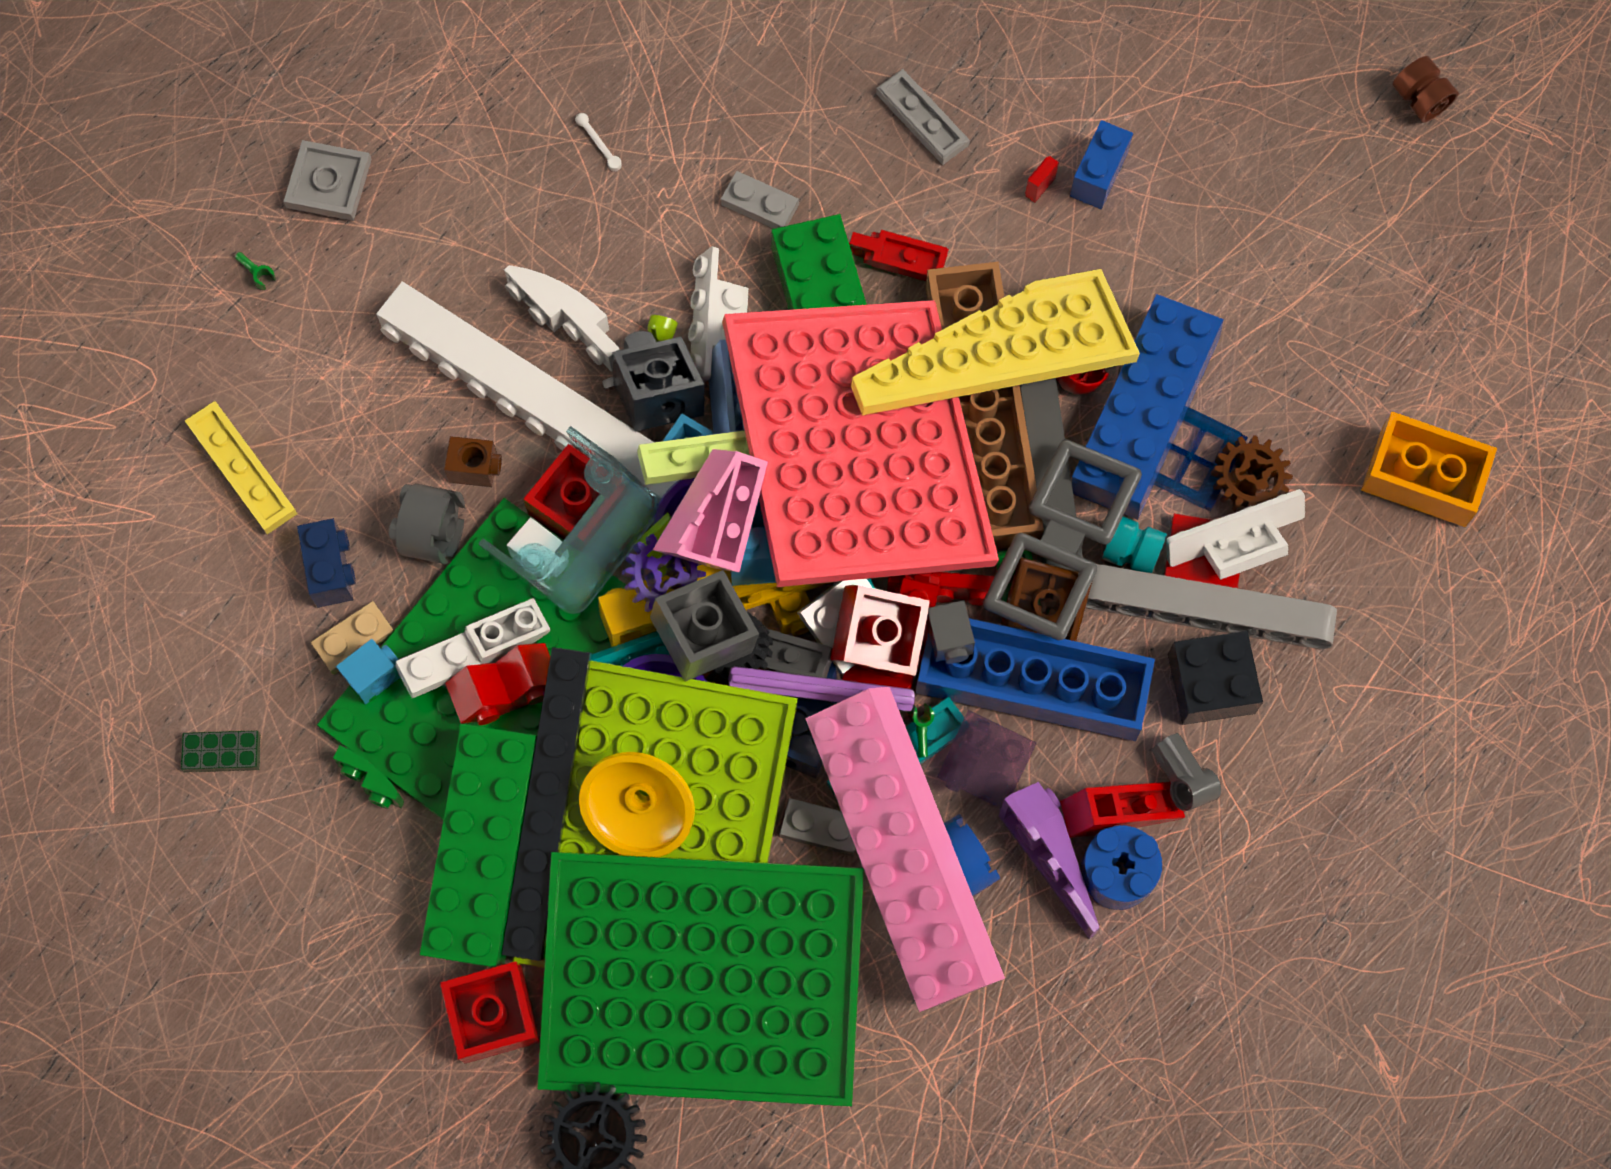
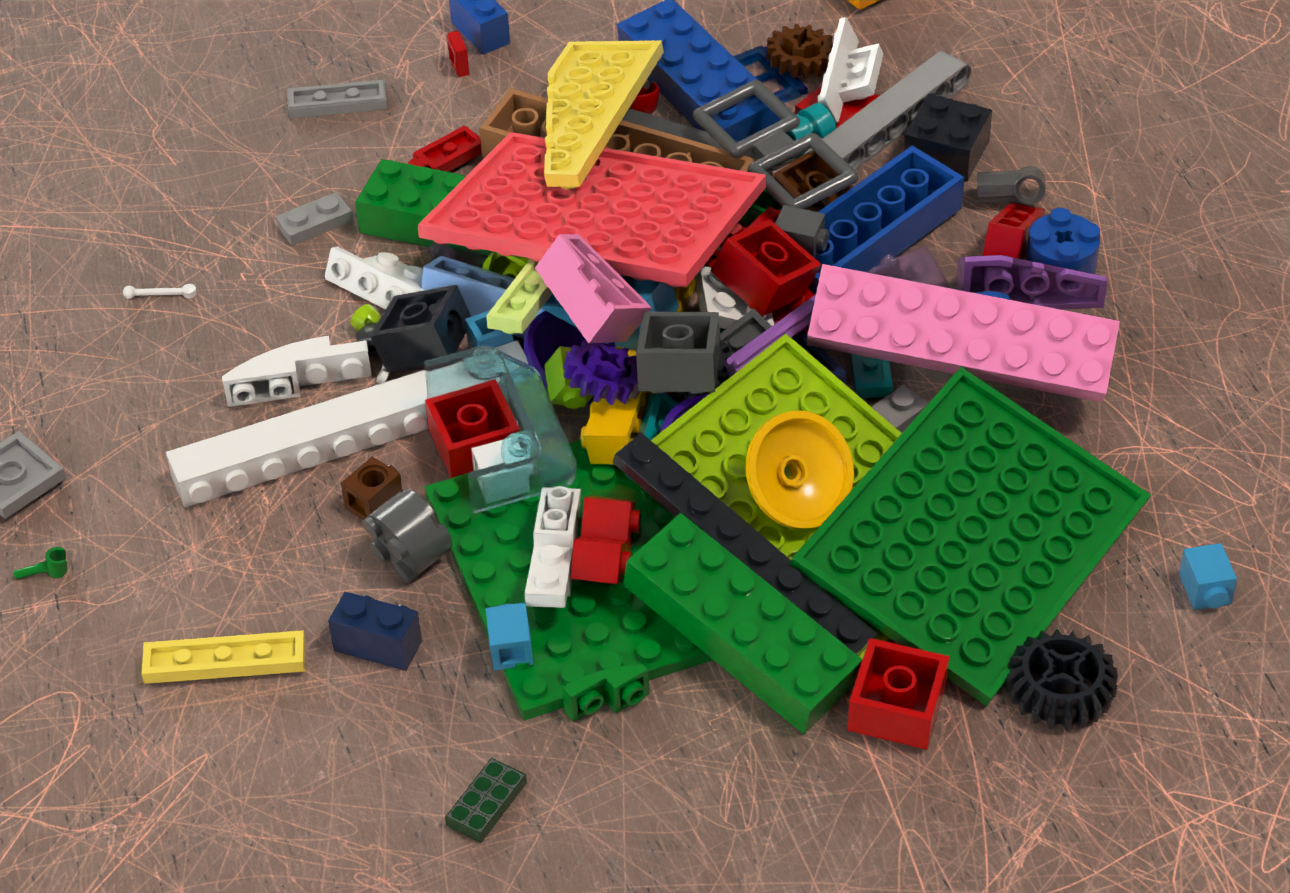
camera: 55 degrees left, 25 degrees down
(352, 634) = (459, 653): tan plate -> none

